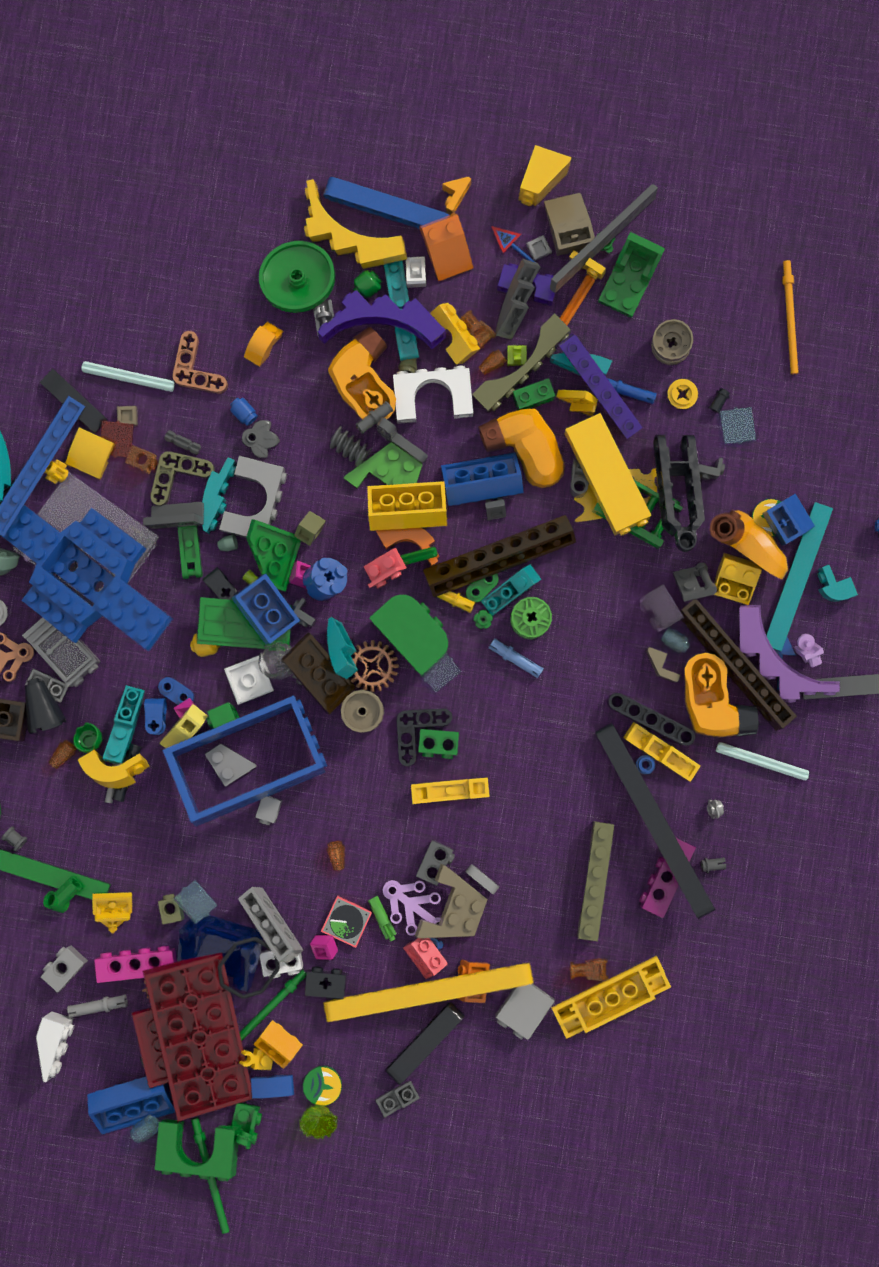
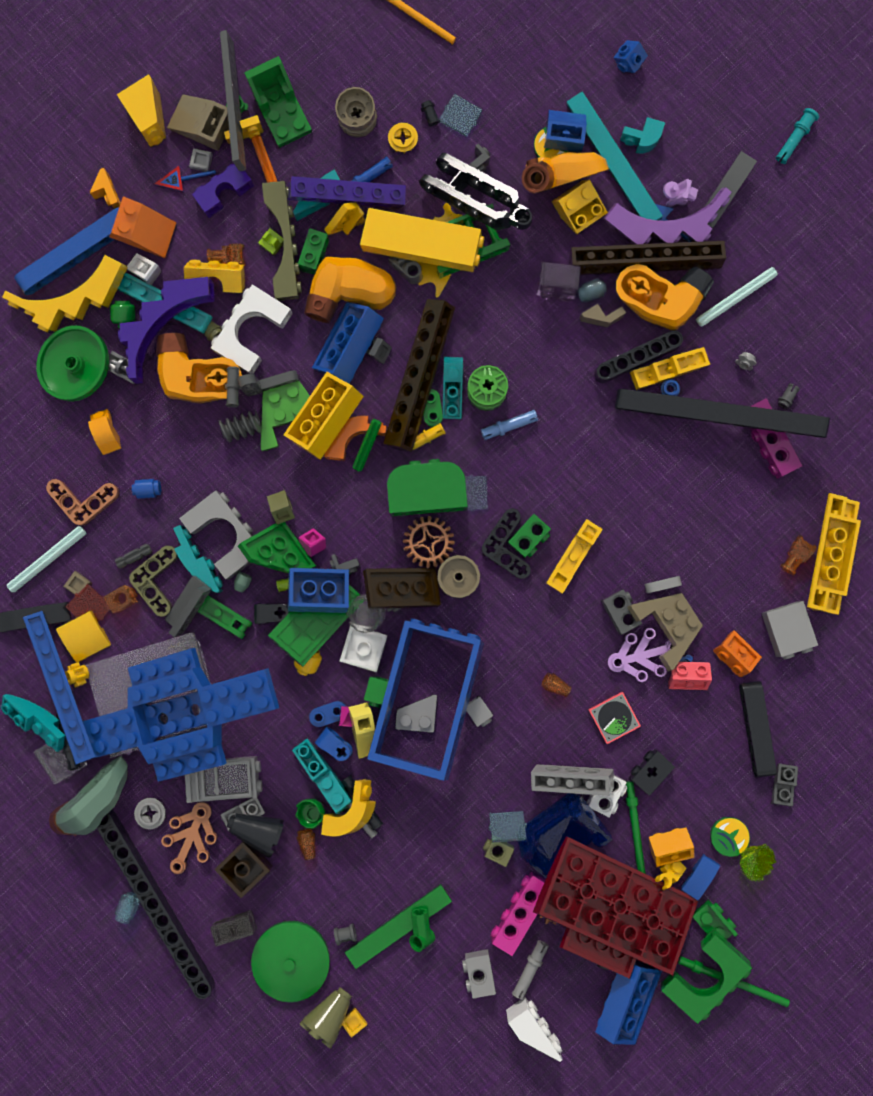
camera: 50 degrees left, 0 degrees up
(112, 909) = (462, 898): yellow slope -> none
(145, 1129) = (658, 1006): clear light blue brick -> none
(227, 956) = (573, 832): black piece -> none
(244, 1138) = (727, 932): green plate -> none
(263, 438) = (181, 490): dark grey plate -> none
(324, 947) = (621, 751): dark pink slope -> none
(325, 579) = (330, 525): blue brick -> none
(340, 649) = (396, 556): teal slope -> none
(382, 918) = (634, 687): bright green piece -> none
(385, 567) = (358, 472): coral bracket -> none
(428, 992) = (721, 694): yellow beam -> none
(483, 624) = (459, 432): green plate -> none
(493, 362) = (262, 264): clear orange cone -> none
(515, 302) = (230, 210): dark grey slope -> none
(595, 881) = (753, 517): olive arch -> none
(688, 584) = (558, 246): dark grey plate -> none

